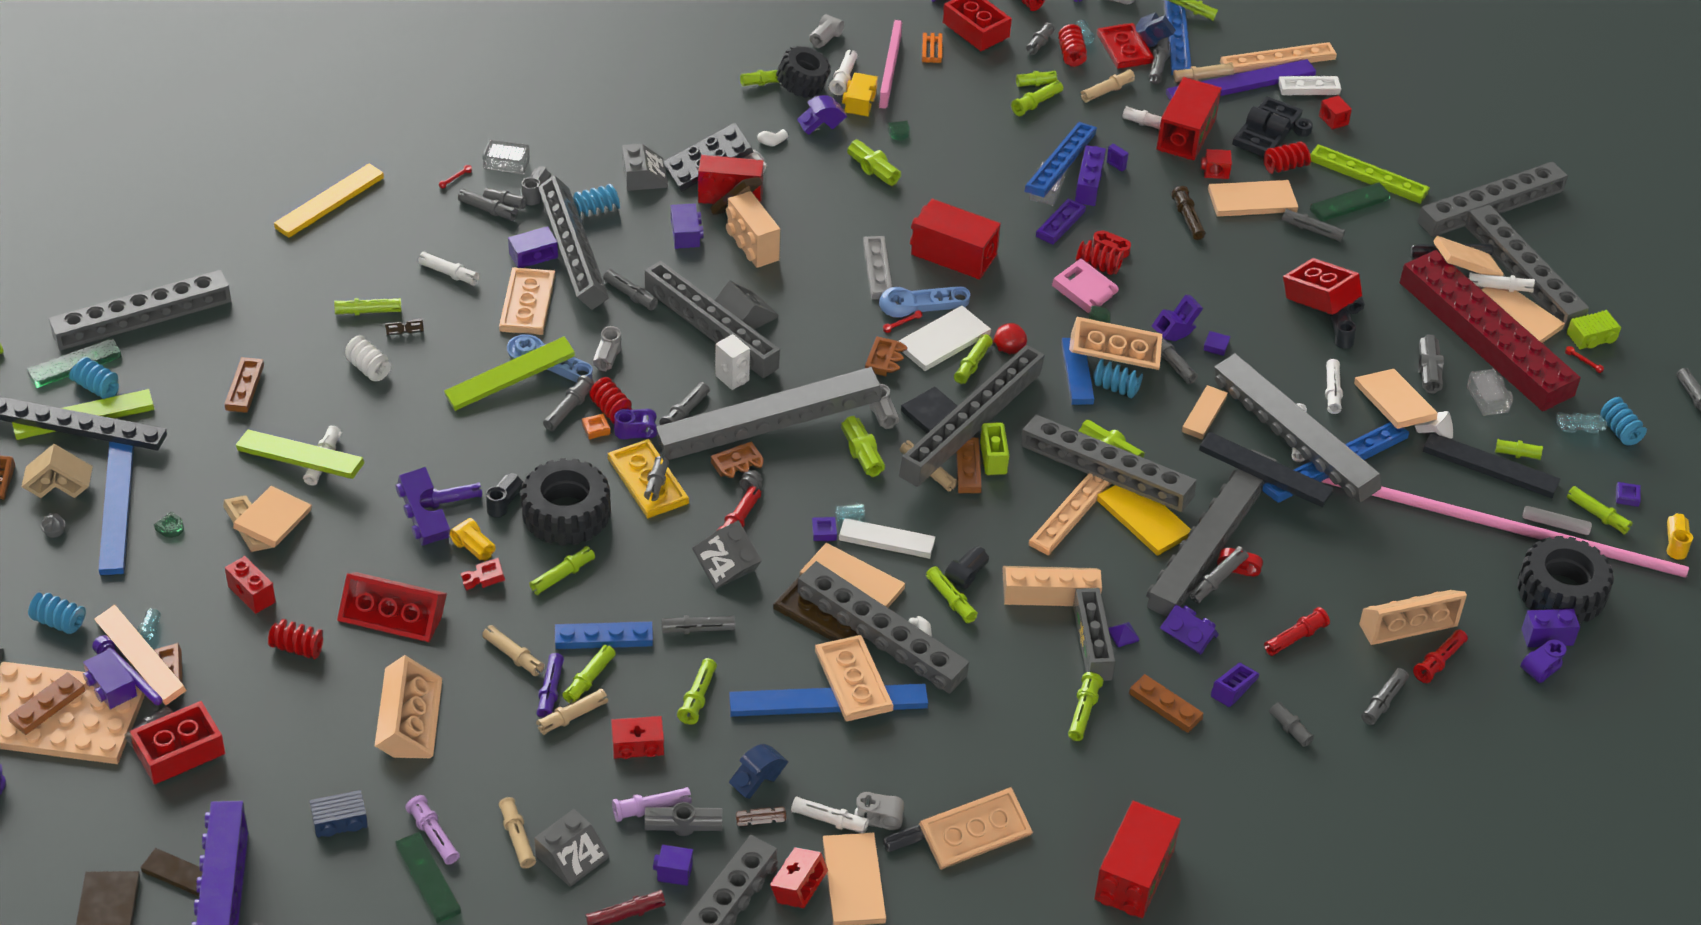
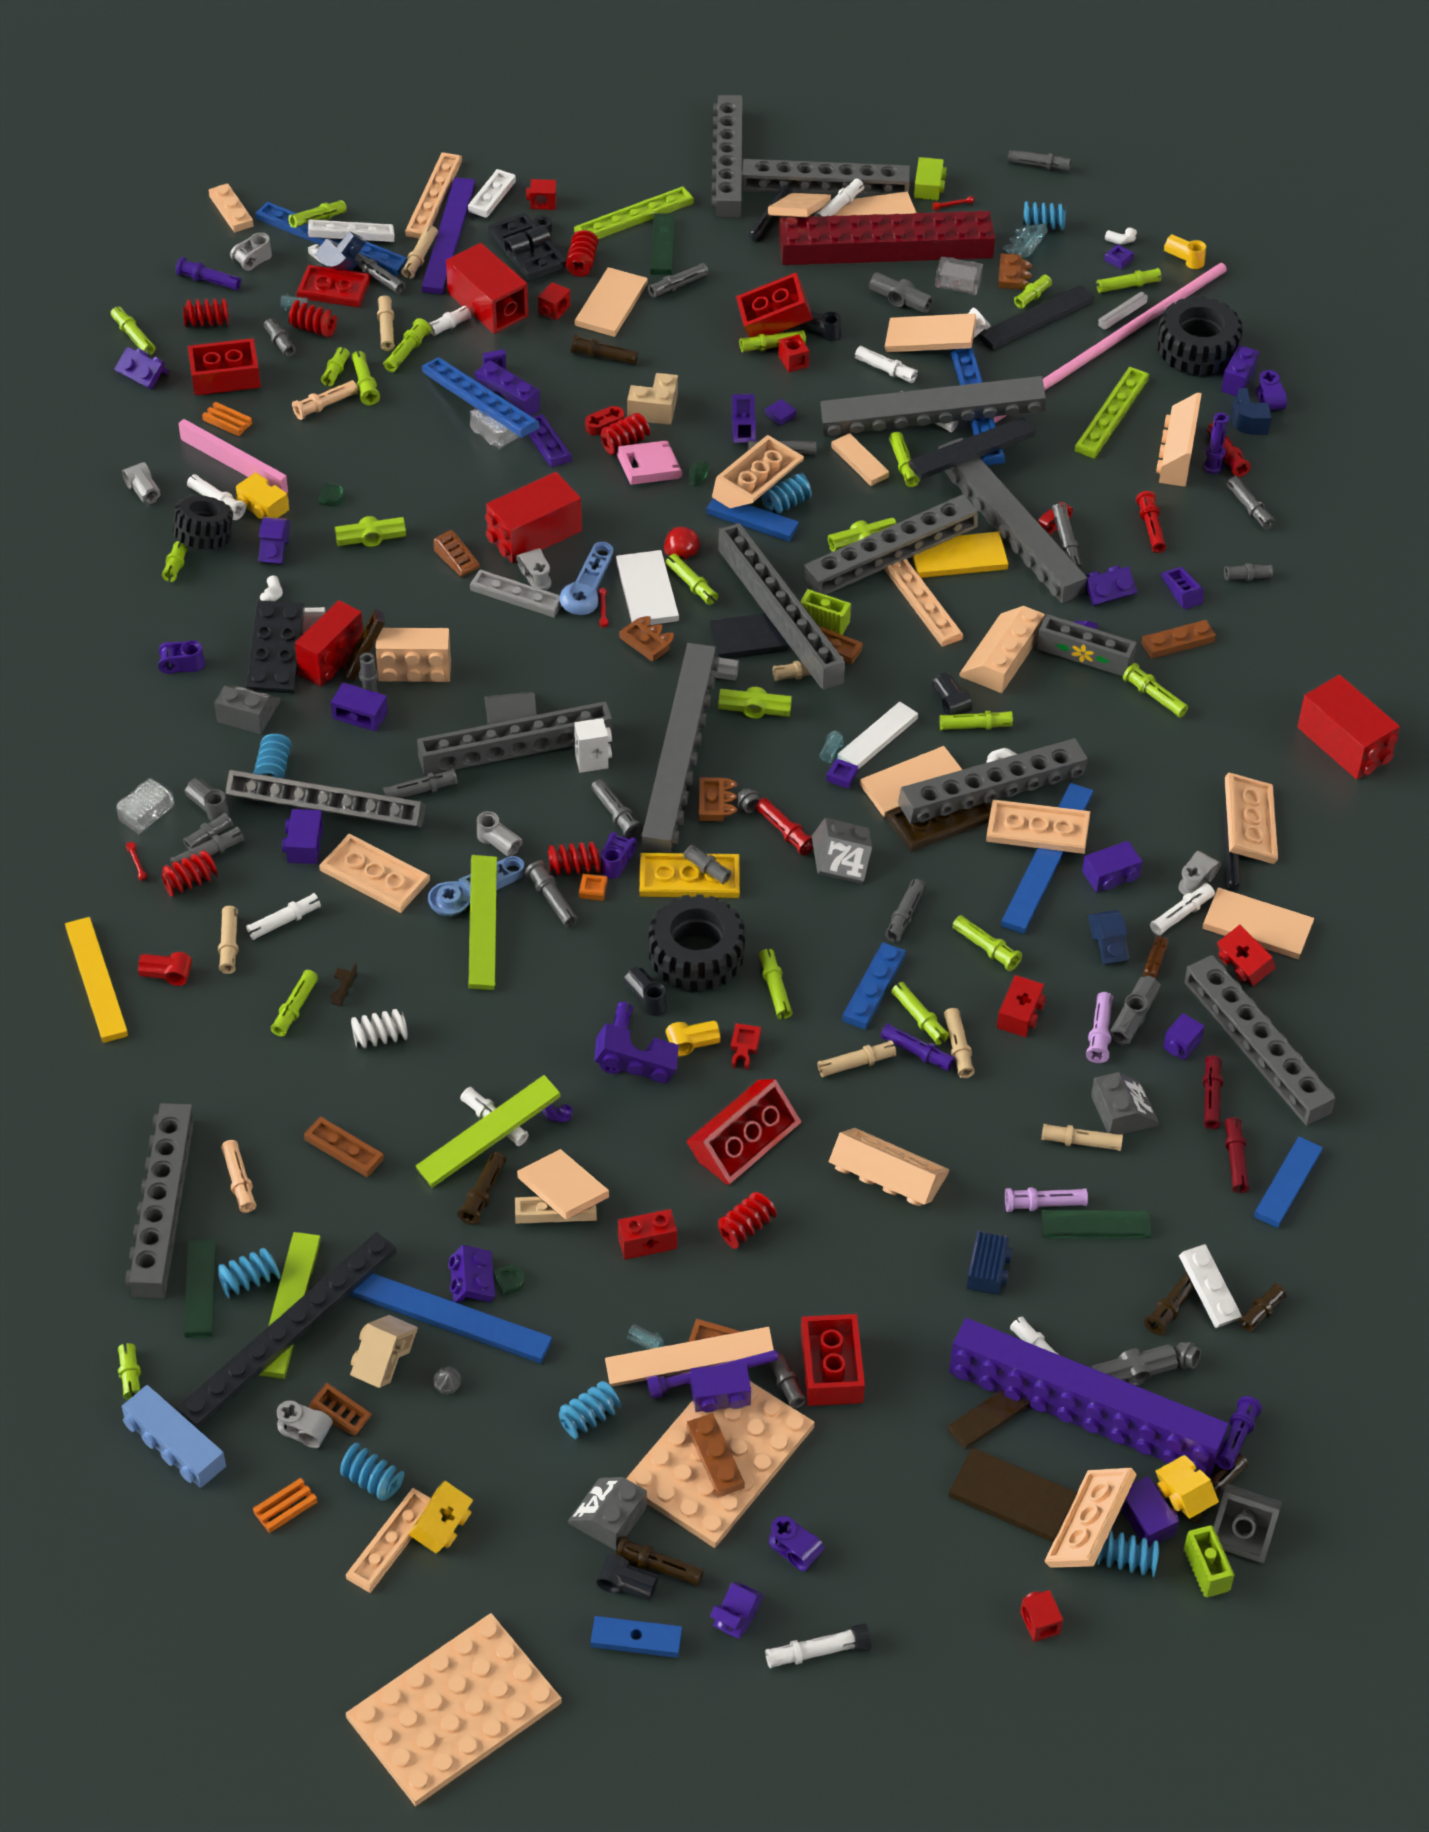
camera: 60 degrees left, 5 degrees up
(160, 500) = (471, 1274): none -> dark purple bracket
(178, 345) = (241, 1185): none -> light nougat pin
(235, 475) = (478, 1196): none -> dark brown pin
(273, 876) = (1028, 1334): none -> white pin
(347, 489) = (560, 1114): none -> dark purple arm
(359, 229) = (172, 969): none -> red piece
(398, 251) = (228, 948): none -> tan pin
(453, 202) = (188, 871): none -> red piece
(665, 118) = (183, 657): none -> dark purple piece
(714, 213) = (368, 672): none -> dark grey pin
(843, 746) = (1112, 866): none -> dark purple brick
(890, 215) = (450, 541): none -> dark orange slope
(909, 265) = (535, 568): none -> light grey piece
(987, 83) = (316, 402): none -> light nougat pin
(1103, 105) = (411, 339): none -> lime pin
(1156, 264) = (655, 403): none -> tan brick
(1189, 28) = (339, 229): none -> white tile
(1242, 428) = (903, 457): none -> lime pin
(1288, 302) = (765, 342): none -> lime pin
(1290, 323) = (793, 353): none -> red brick
(1417, 558) = (1111, 412): none -> lime tile
(1419, 639) = (1216, 450): none -> dark purple pin
(1499, 655) = (1250, 417): none -> dark blue brick
(1536, 428) = (1013, 272): none -> dark orange plate
(1658, 490) = (1121, 239): none -> white arm

